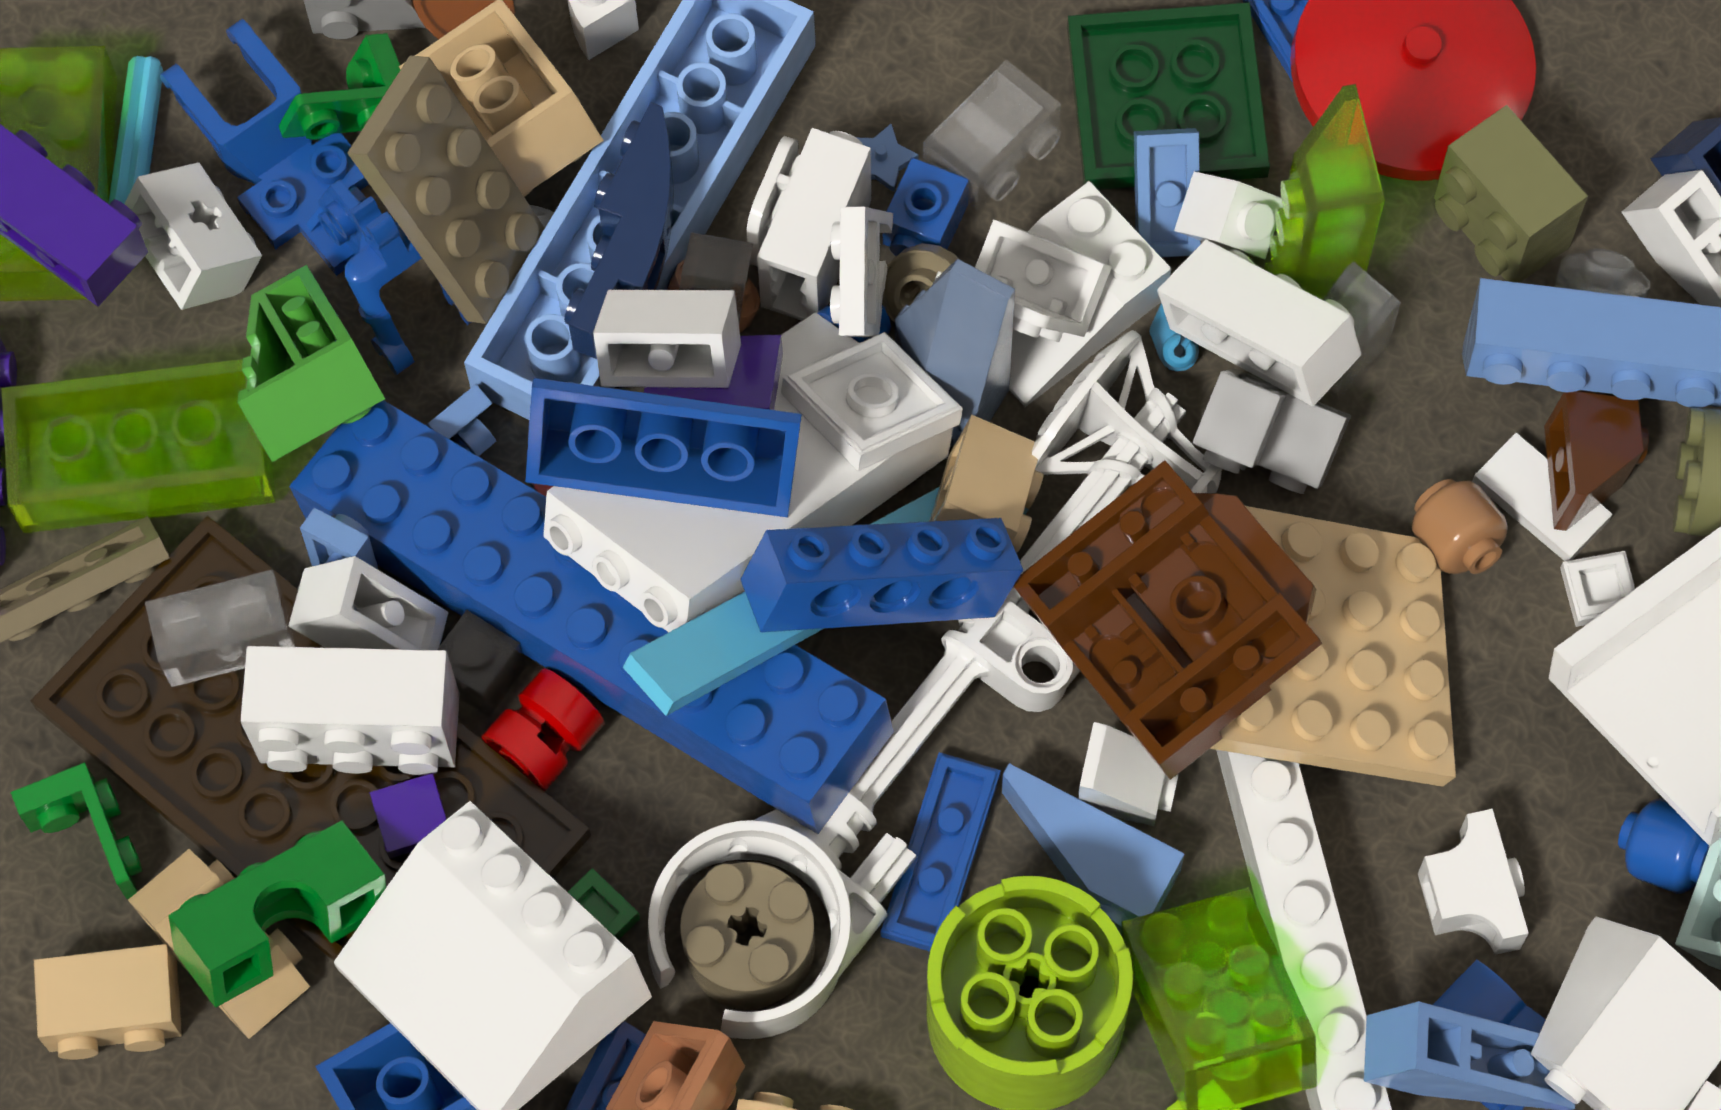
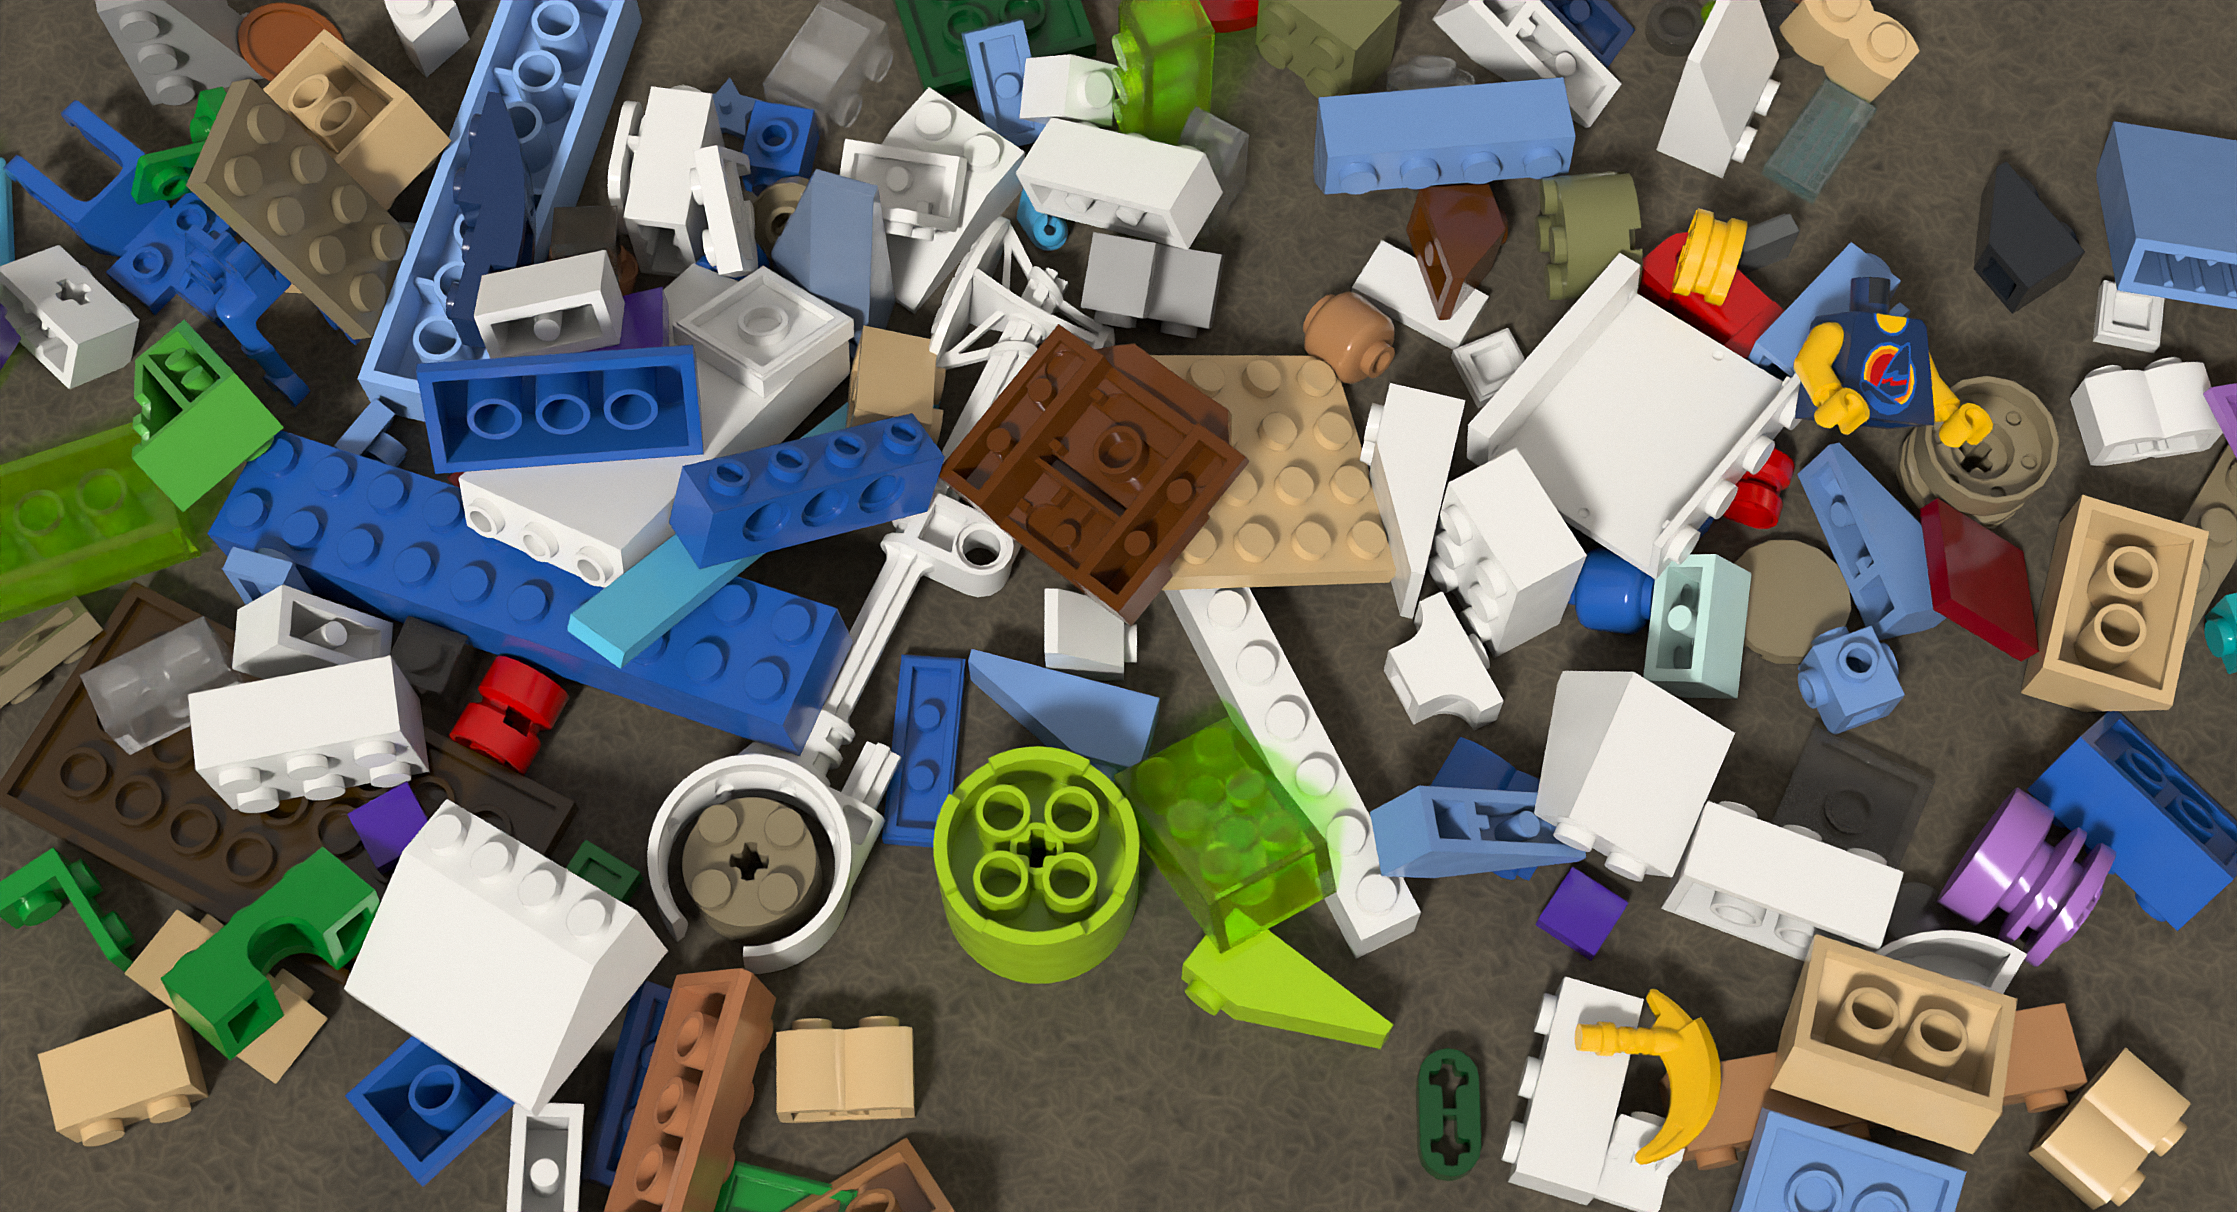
camera: 15 degrees left, 0 degrees up
(1491, 664) = (1409, 462): none -> white slope
(1561, 786) = (1504, 553): none -> white brick

